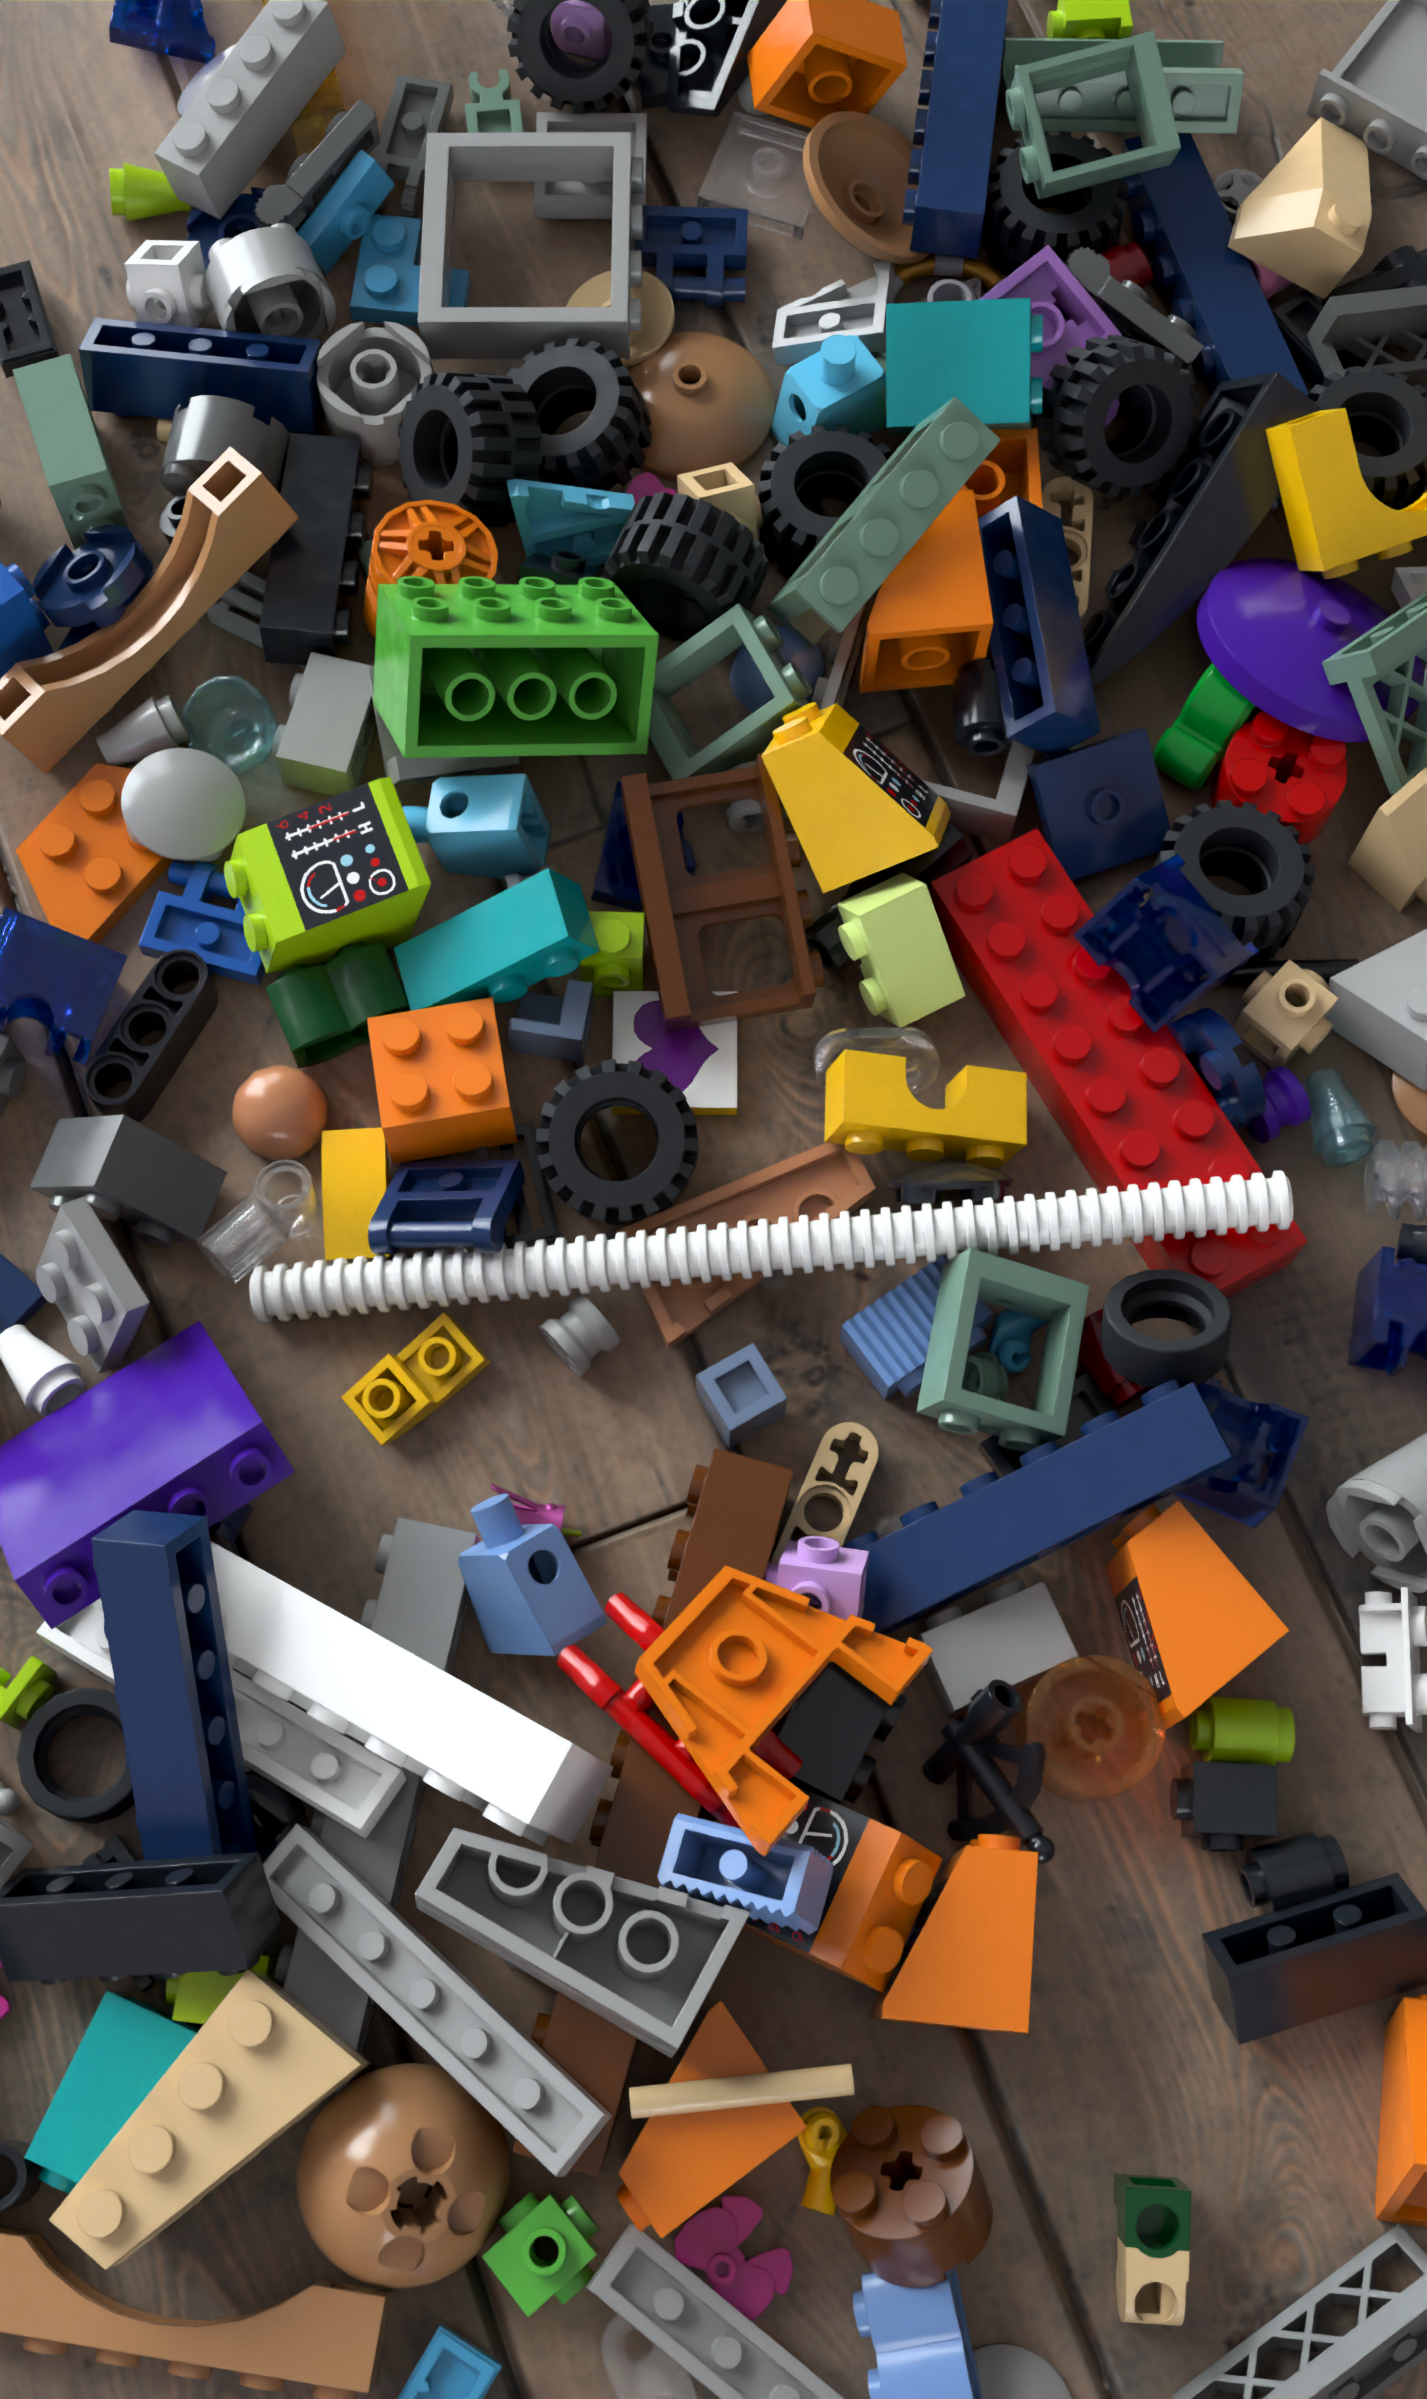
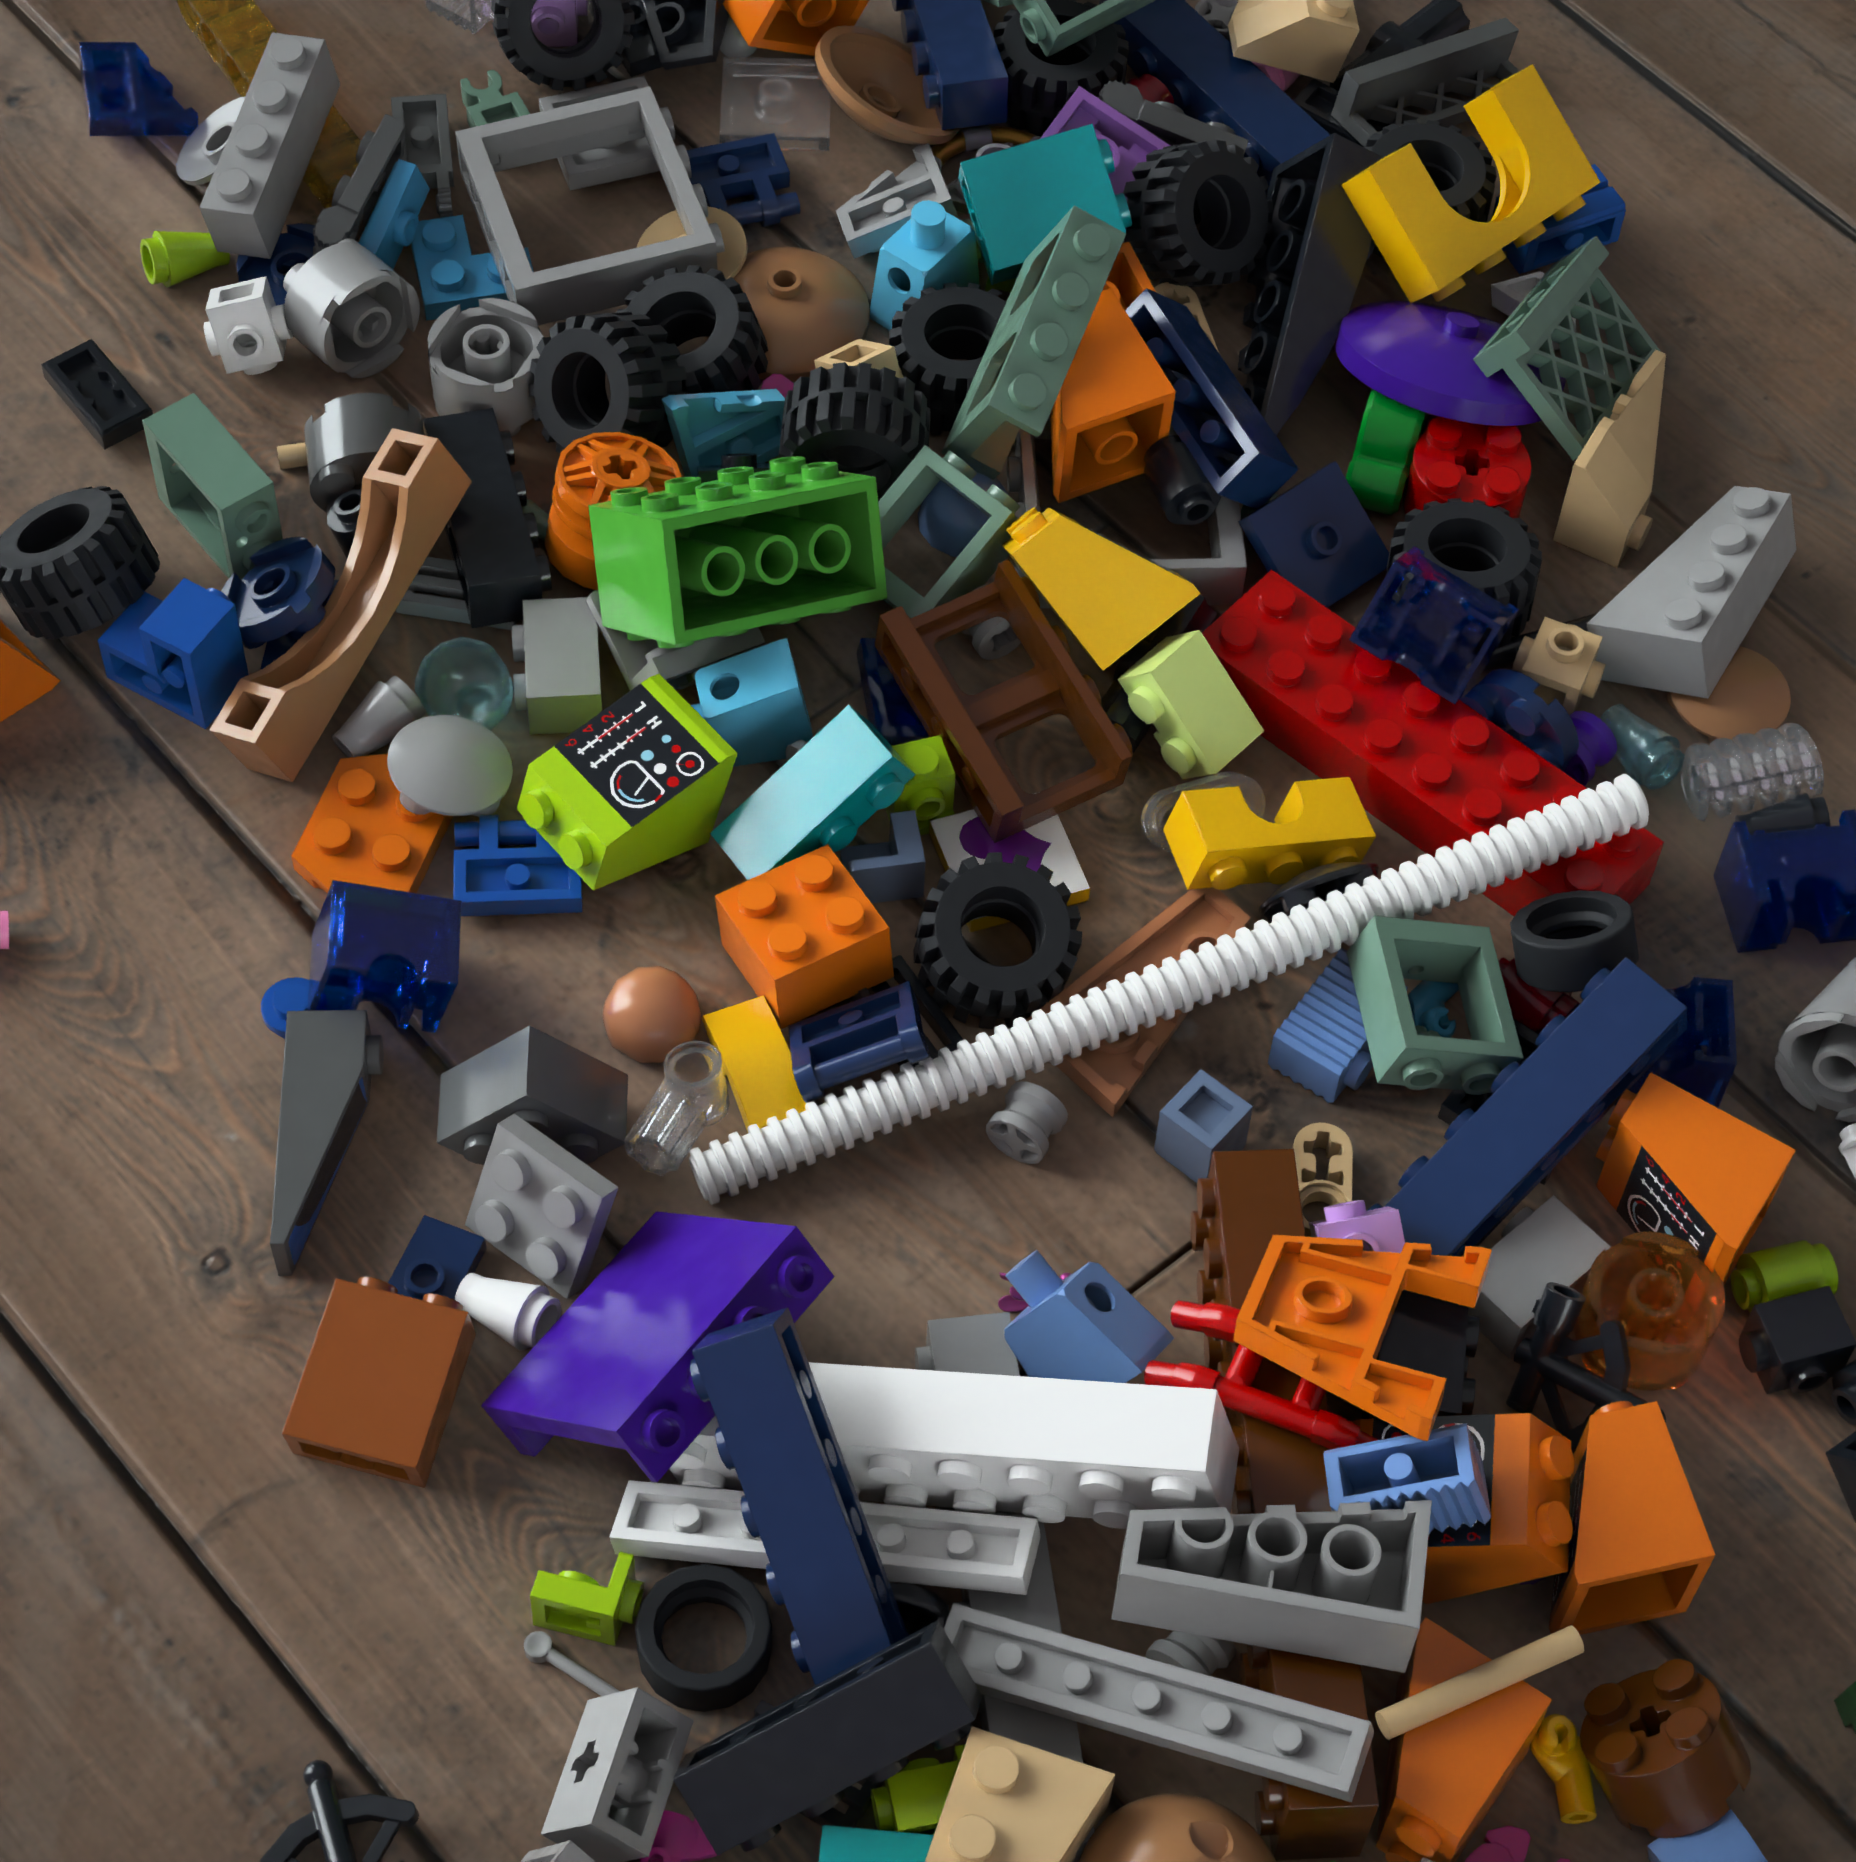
camera: 20 degrees left, 15 degrees down
(152, 1009) = (496, 956): black beam -> none
(156, 367) = (274, 394): dark blue brick -> none
(328, 1005) = (669, 904): dark green brick -> none
(416, 1381) = (884, 1210): yellow slope -> none

